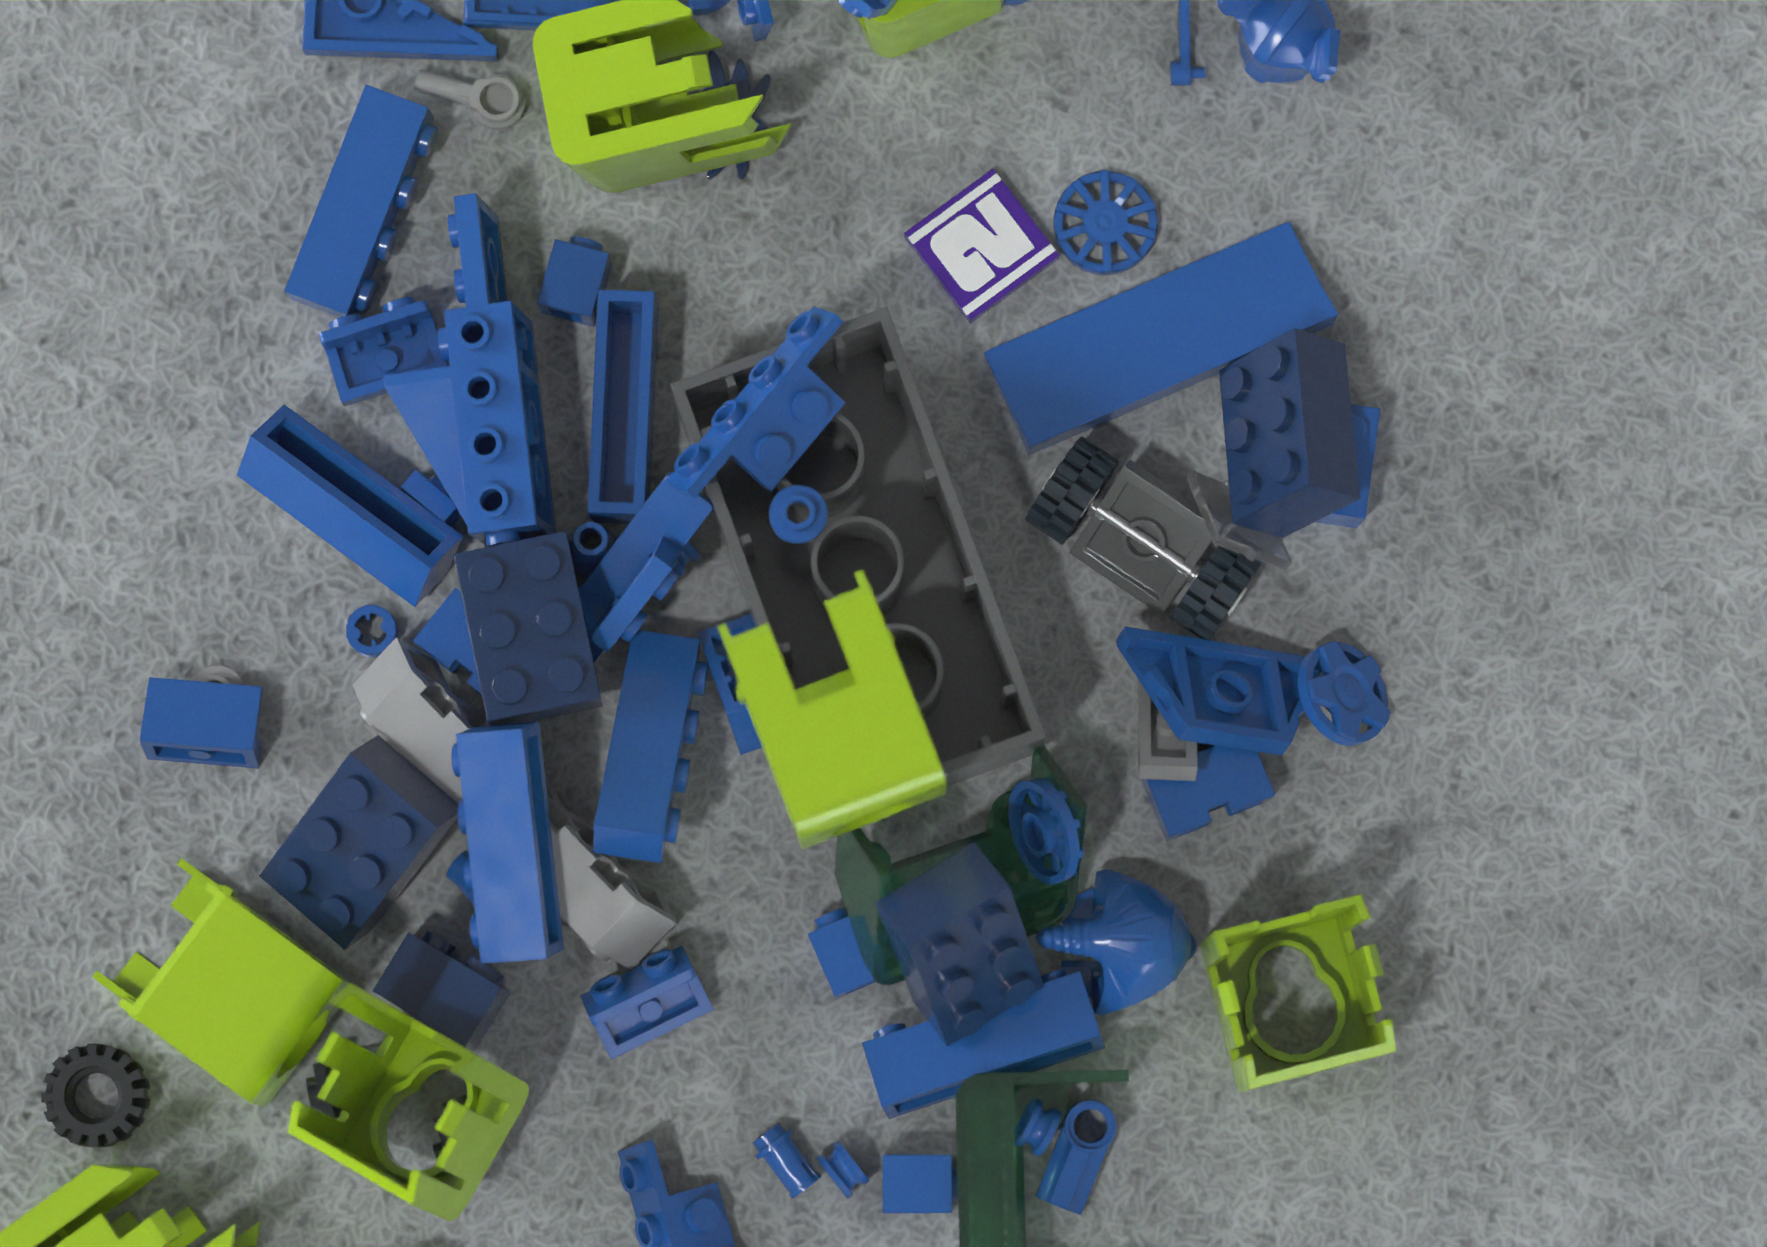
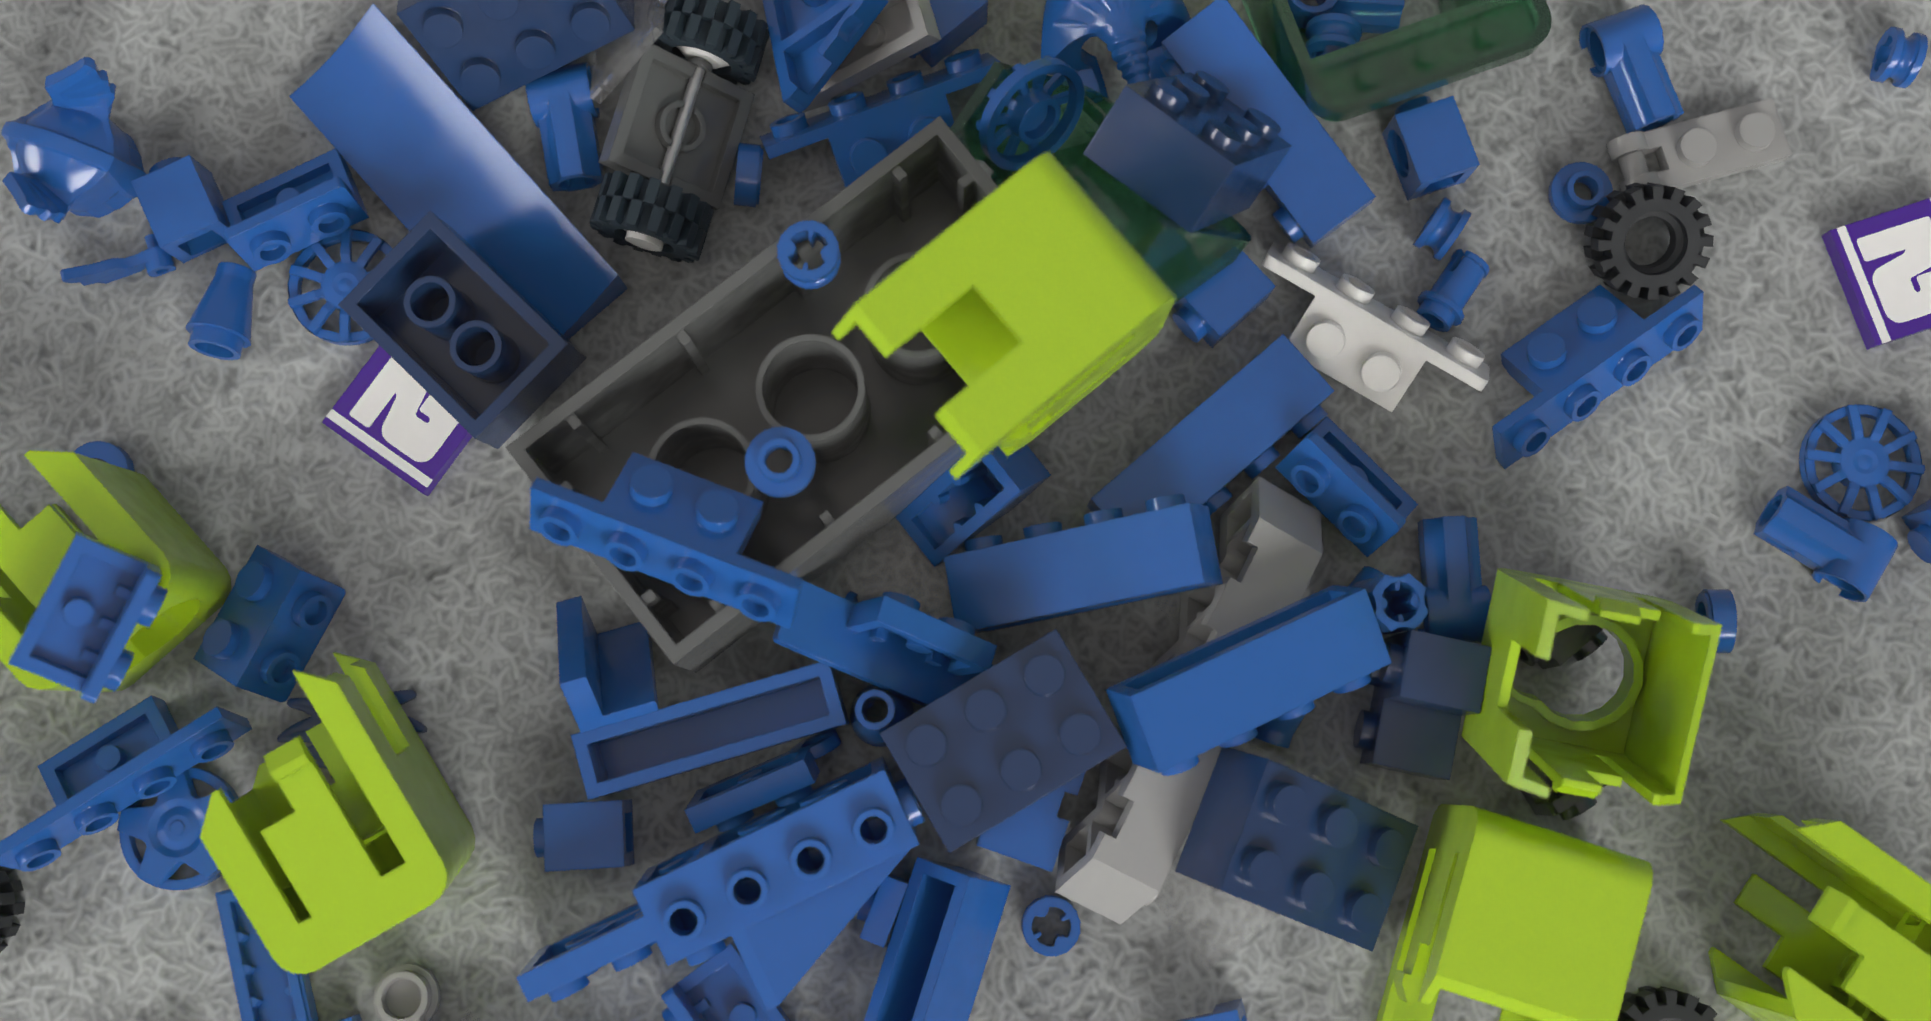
camera: 110 degrees left, 0 degrees up
(535, 985) = (1395, 600): none -> blue piece
(539, 1063) = (1453, 578): none -> blue piece
(565, 447) = (778, 779): none -> blue hinge
(701, 332) = (605, 673): none -> blue panel
(720, 906) = (1225, 434): none -> blue brick
(772, 1068) = (1364, 340): none -> white bracket
(836, 78) = (269, 625): none -> blue bracket
(968, 576) = (788, 255): none -> blue bush
(1019, 305) = (462, 331): none -> dark blue brick
(1089, 586) = (748, 175): none -> blue tile
(1094, 724) = (872, 127): none -> blue bracket
(1113, 115) = (224, 314): none -> blue cone
(1179, 445) = (567, 127): none -> blue piece
(1182, 197) = (293, 210): none -> blue bracket
(1215, 108) = (183, 207): none -> blue brick

